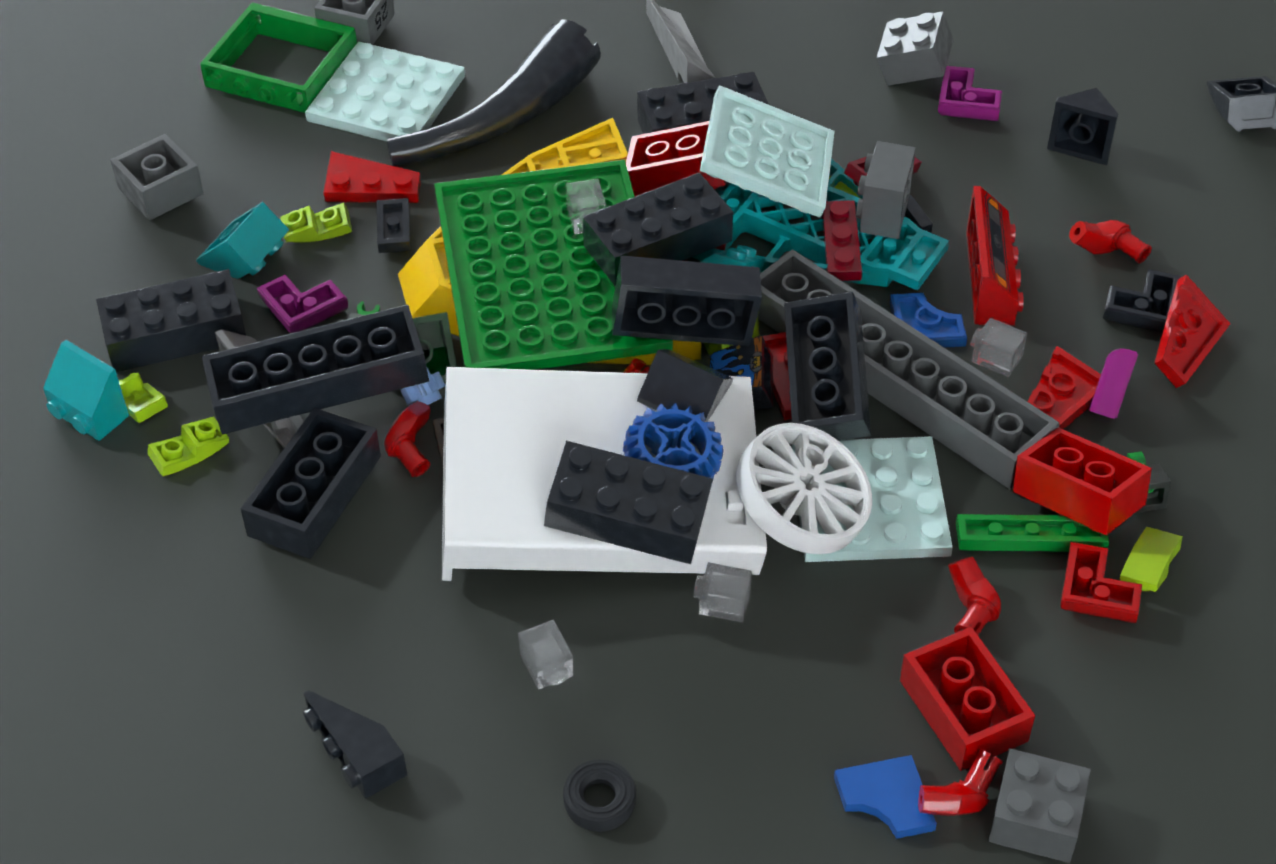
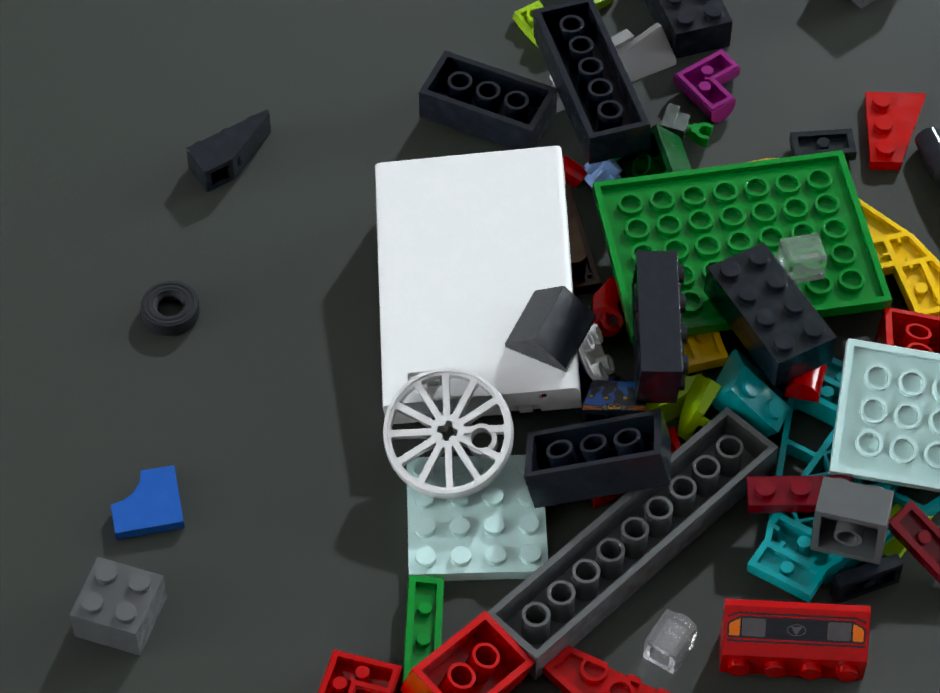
camera: 90 degrees right, 5 degrees up
(245, 243) = (784, 39): teal slope -> none
(310, 227) = (823, 91): lime slope -> none
(546, 654) = (303, 268): clear brick -> none
(627, 502) = (409, 283): black brick -> none
(670, 438) = (471, 327): blue gear -> none
(723, 592) = (361, 393): clear brick -> none
(939, 326) = (710, 581): blue tile -> none
(961, 796) = (133, 548): red arm -> none
(966, 697) = (228, 558): red brick -> none
(975, 594) = (346, 588): red arm -> none

